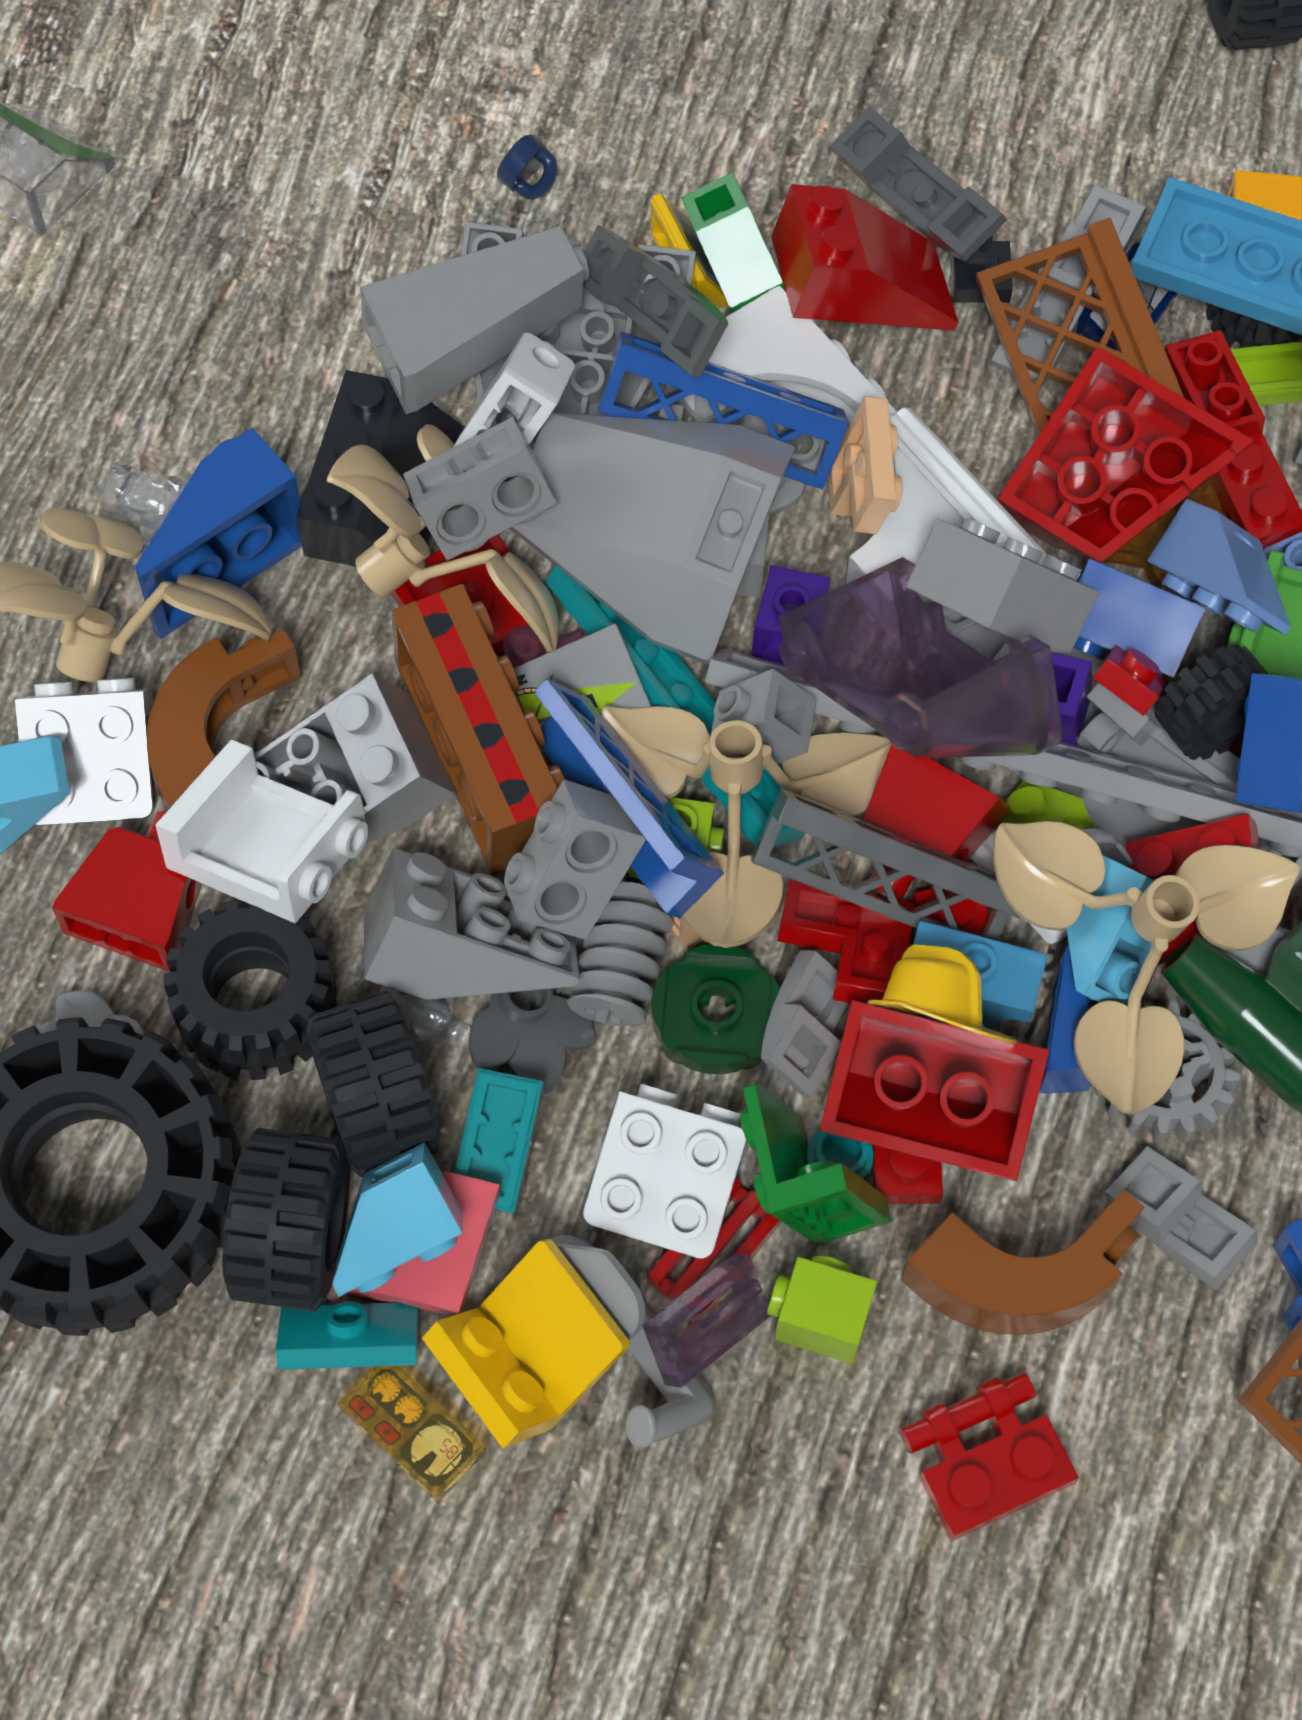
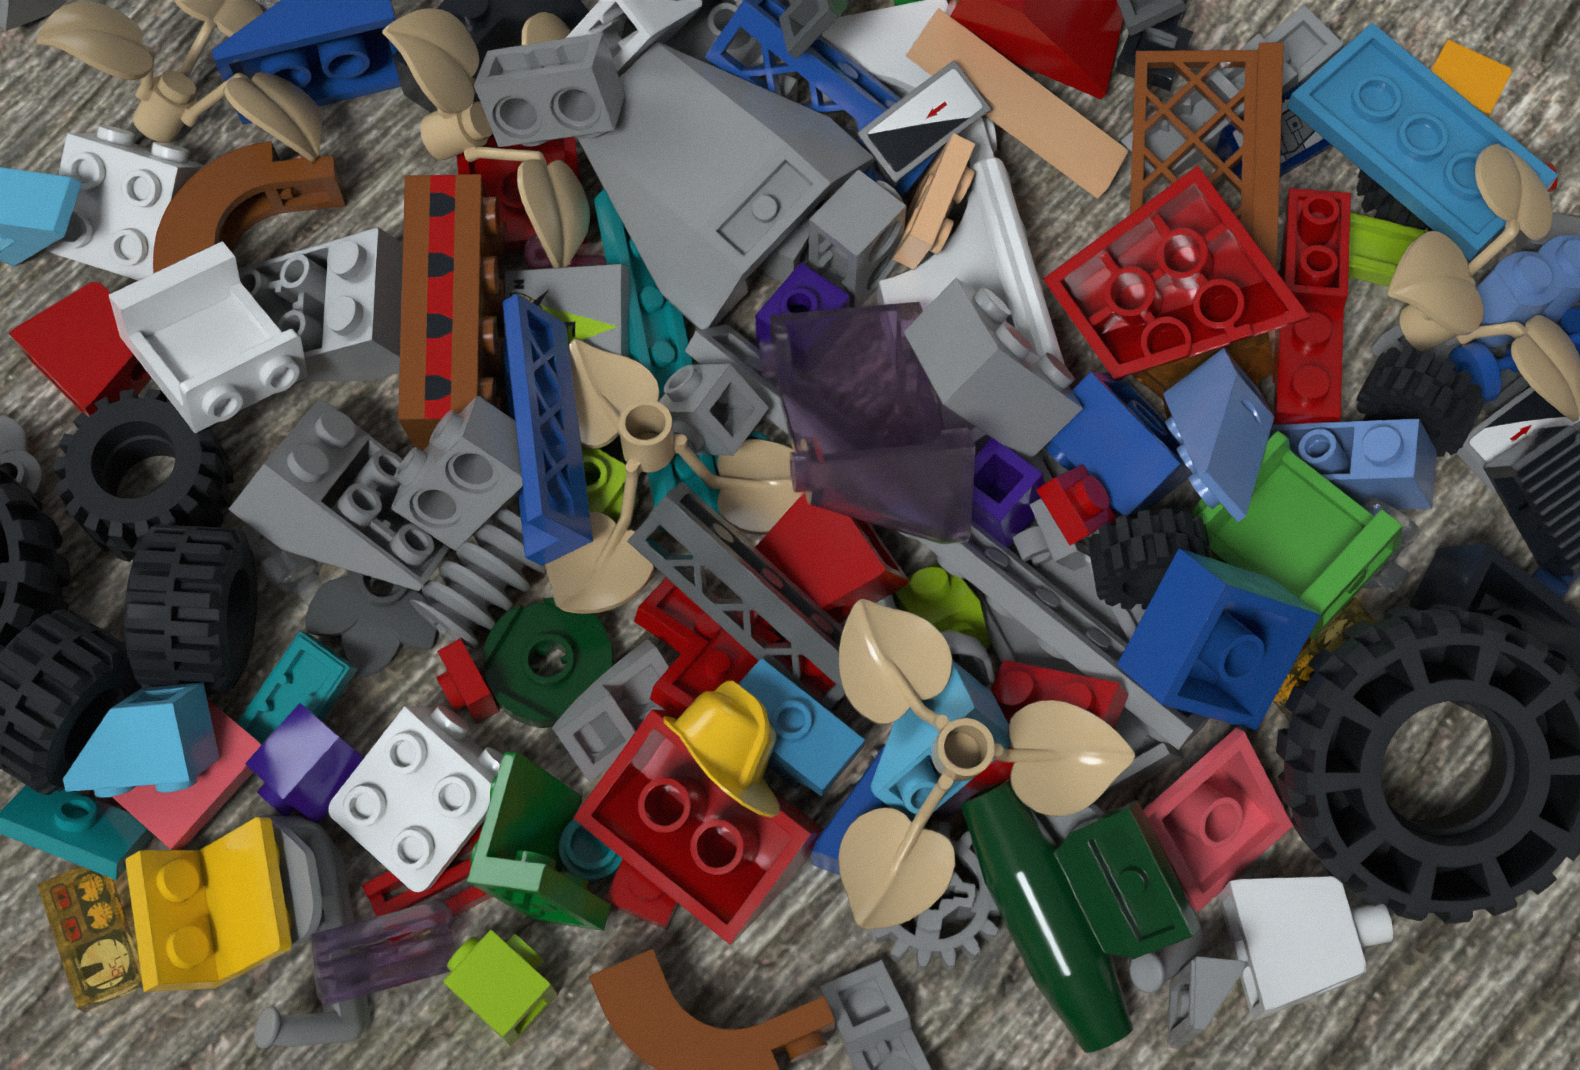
camera: 25 degrees right, 5 degrees up
(545, 1185) = (303, 765): none -> dark purple brick
(651, 1055) = (464, 683): none -> red plate
(813, 519) = (857, 236): none -> light grey brick
(826, 399) = (923, 121): none -> slope
(891, 356) = (1022, 104): none -> light nougat tile

